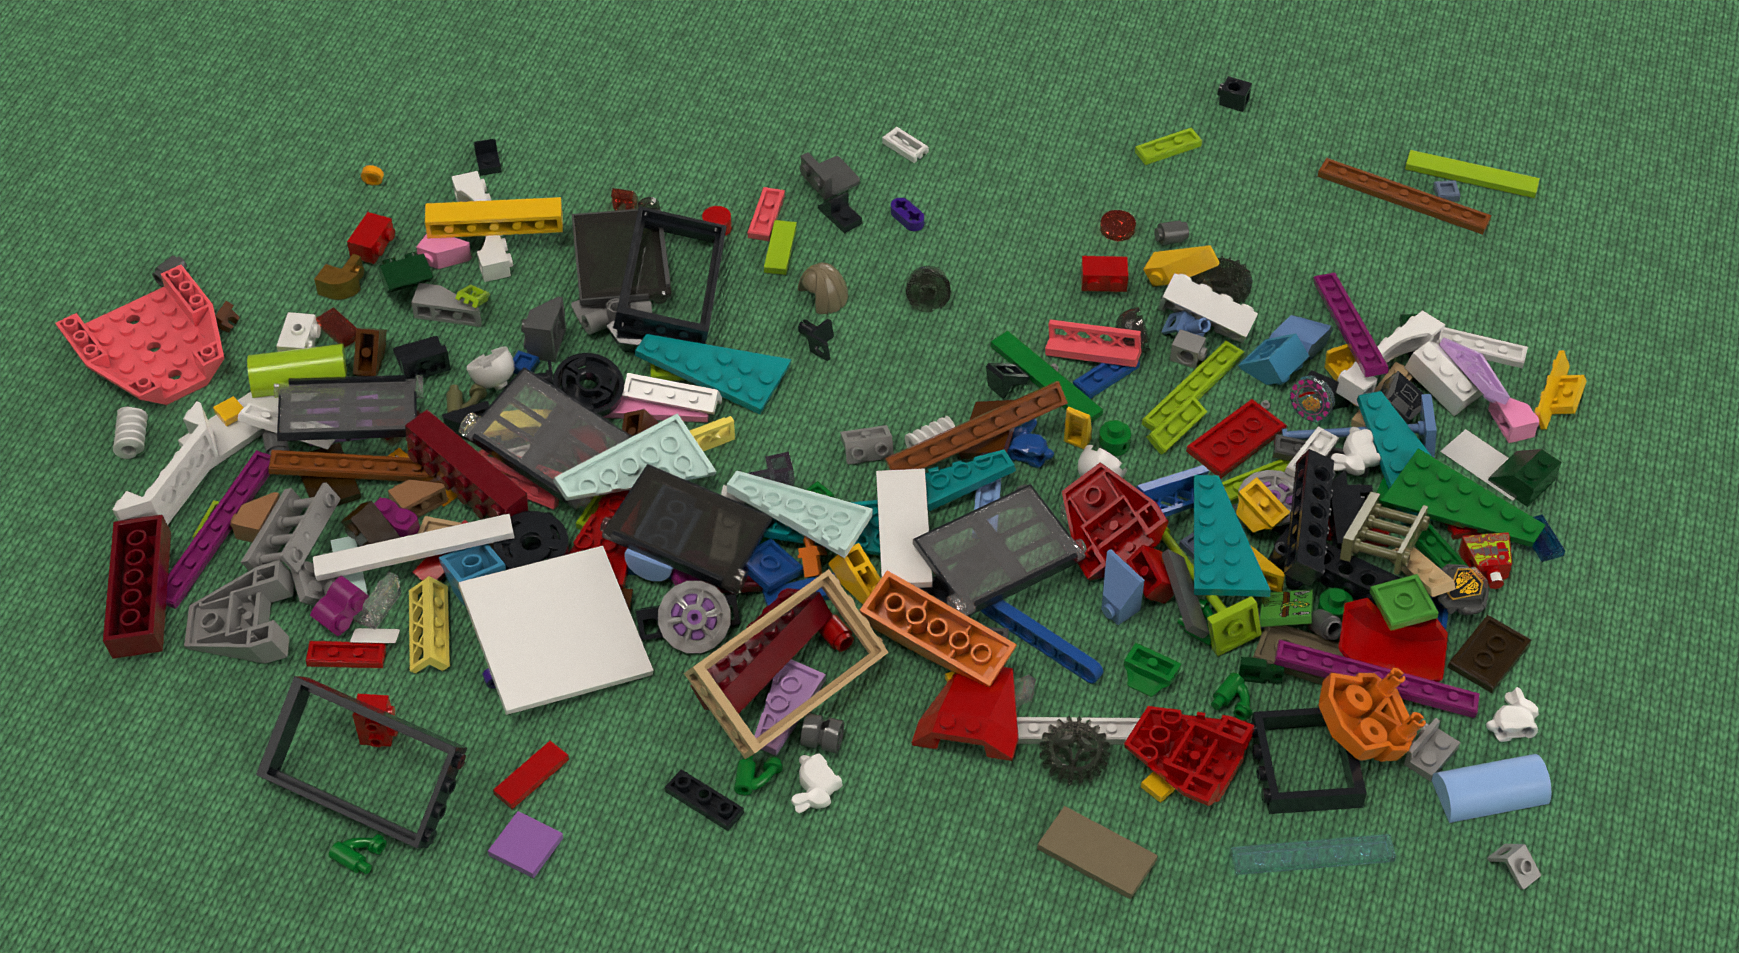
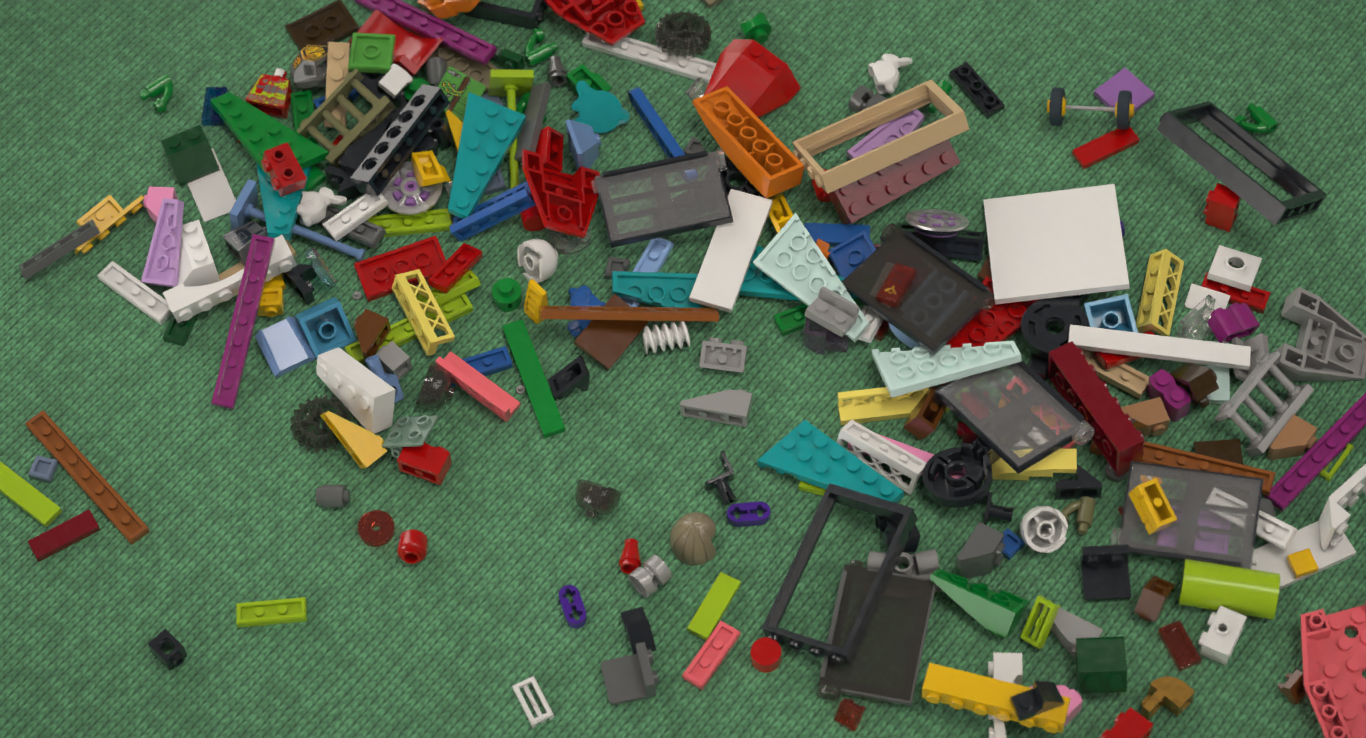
camera: 155 degrees left, 10 degrees up
(364, 681) = (1237, 277): none -> white piece
(384, 387) = (1152, 506): none -> yellow brick
(452, 207) = (1038, 700): none -> black slope
(515, 300) = (991, 609): none -> green wedge
(598, 788) = (1057, 108): none -> black axle
(710, 518) = (896, 285): none -> clear red tile
(766, 471) = (833, 312): none -> light grey bracket
(780, 322) = (748, 514): none -> dark purple beam
(846, 395) = (725, 407): none -> light grey slope
(847, 244) = (653, 573): none -> light grey wheel
(873, 257) = (630, 556): none -> red cone
(990, 784) = (757, 28): none -> green piece
(1074, 213) = (412, 546): none -> red head
(1125, 636) = (598, 109): none -> teal tile
(1130, 283) = (409, 433): none -> sand green hinge
(1180, 440) = (455, 268): none -> red tile
(1186, 381) = (413, 309): none -> light yellow fence
(1196, 674) = (556, 72): none -> flat silver cone
(1224, 356) = (371, 332): none -> reddish brown slope
(1357, 581) = (395, 80): none -> white tile
(1387, 150) = (63, 535): none -> dark red tile
(1406, 445) = (283, 169): none -> red brick
(1579, 349) = (59, 249): none -> dark grey tile
(1614, 538) = (155, 88): none -> green plant

